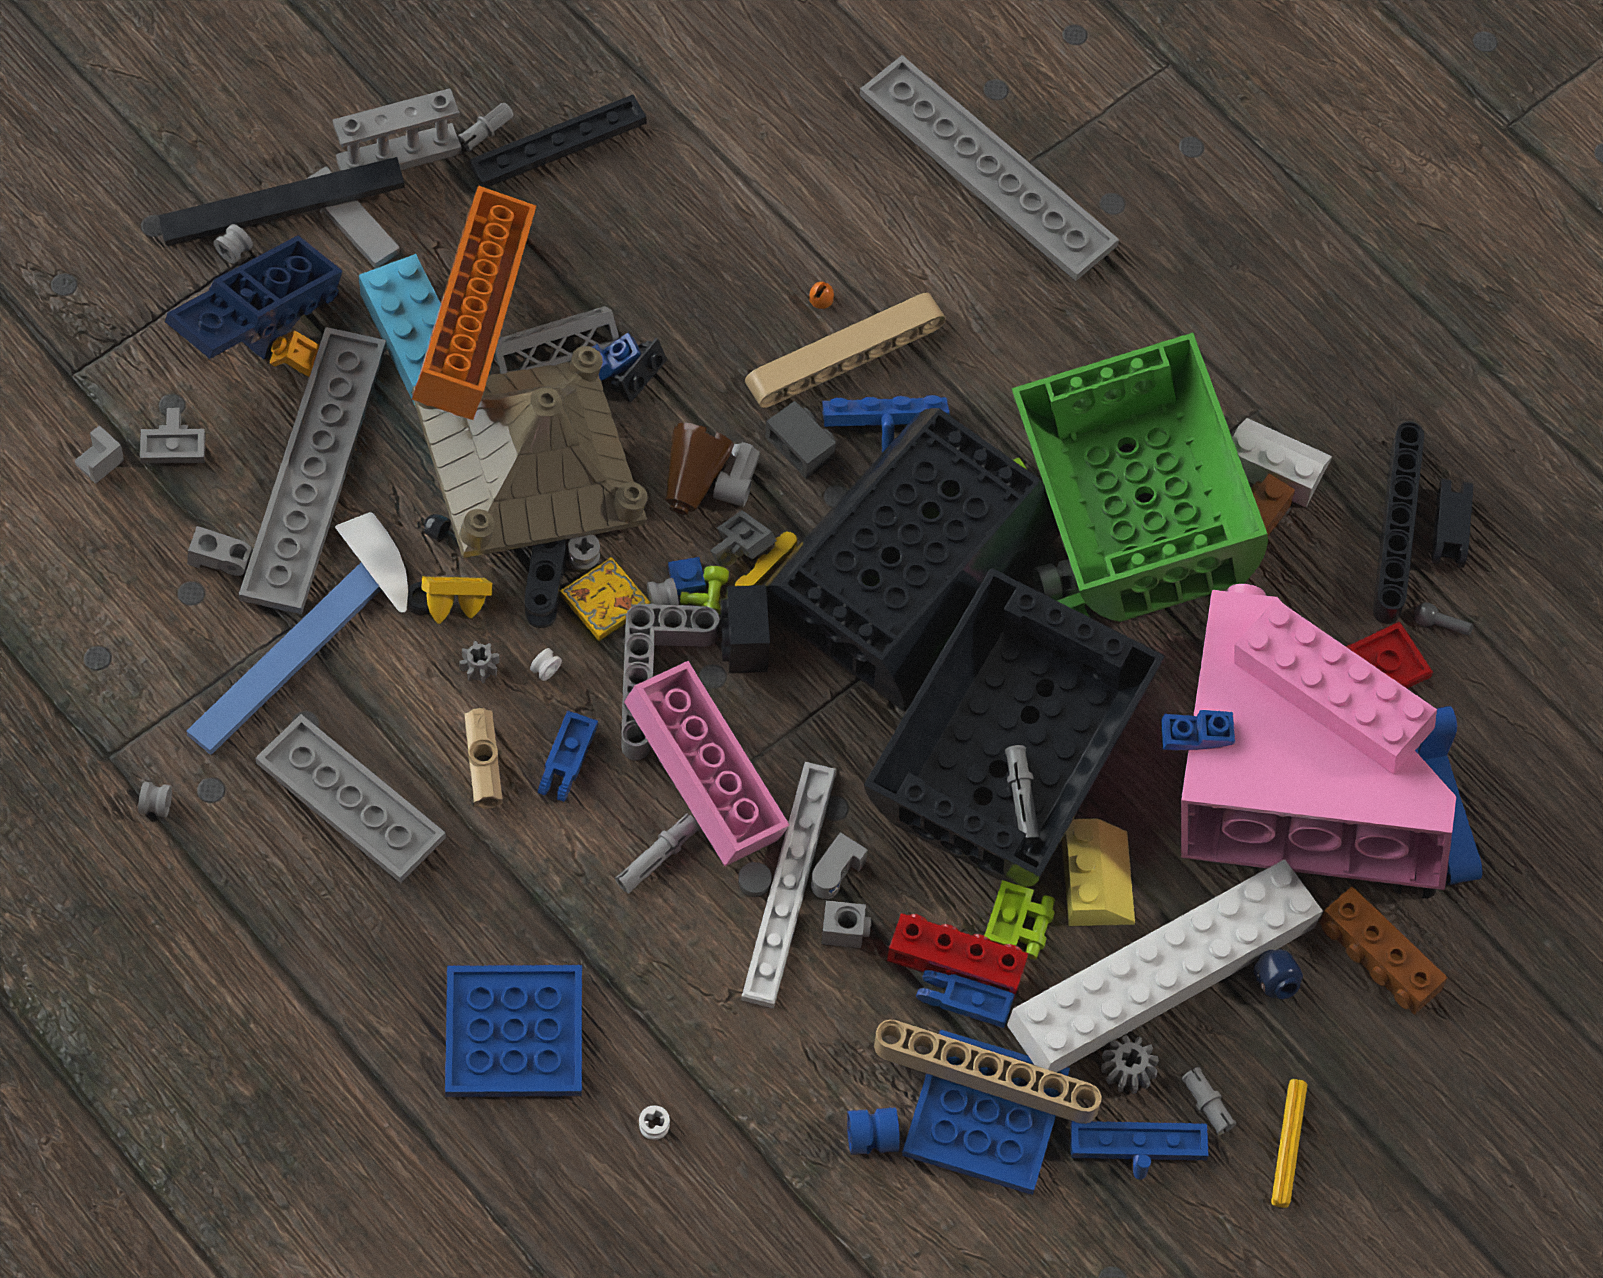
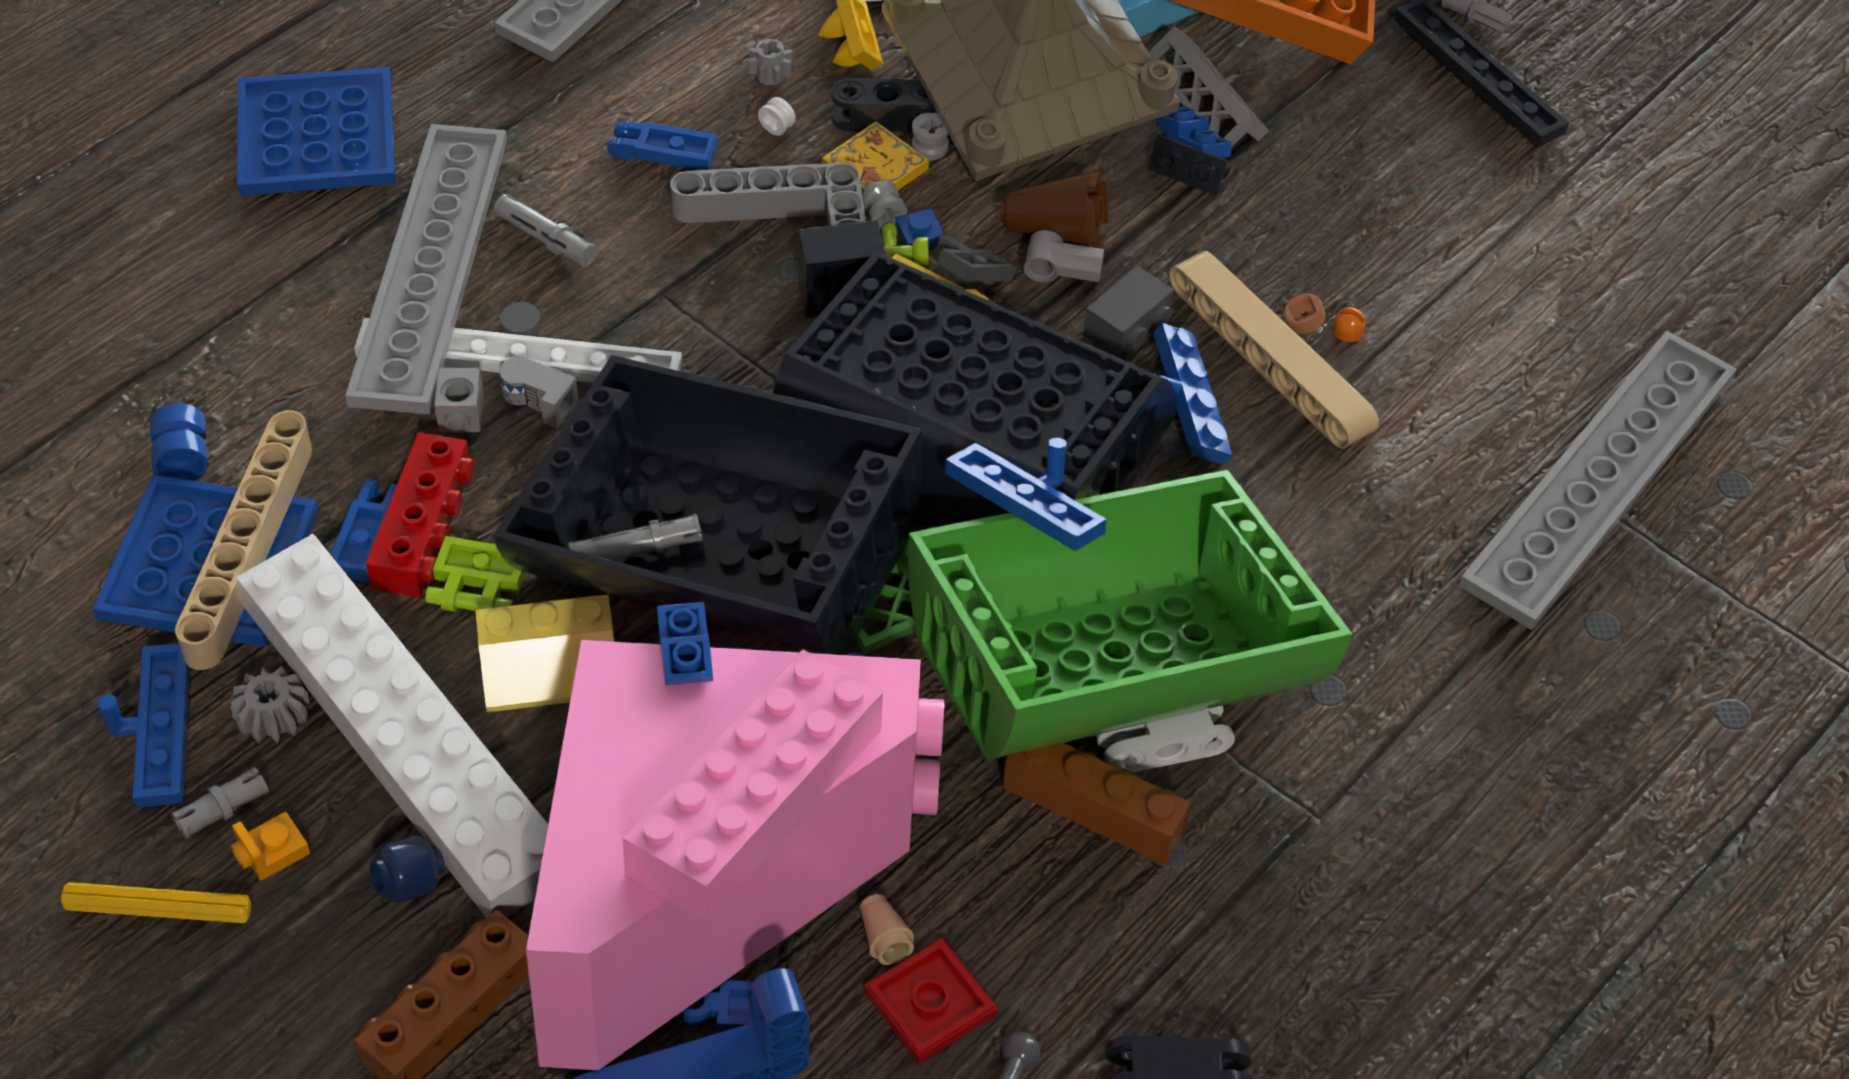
camera: 85 degrees right, 10 degrees down
(484, 774) = (648, 74): tan piece -> none
(657, 1132) = (201, 248): white bush -> none
(696, 938) = (427, 271): none -> light grey plate
(706, 763) = (647, 237): bright pink brick -> none
(811, 321) = (1304, 313): none -> nougat tile
(1052, 510) = (1026, 496): none -> blue plate
(1246, 1068) = (269, 846): none -> light orange bracket
(1285, 458) = (1235, 833): white slope -> none
(1398, 534) = (1183, 983): black beam -> none

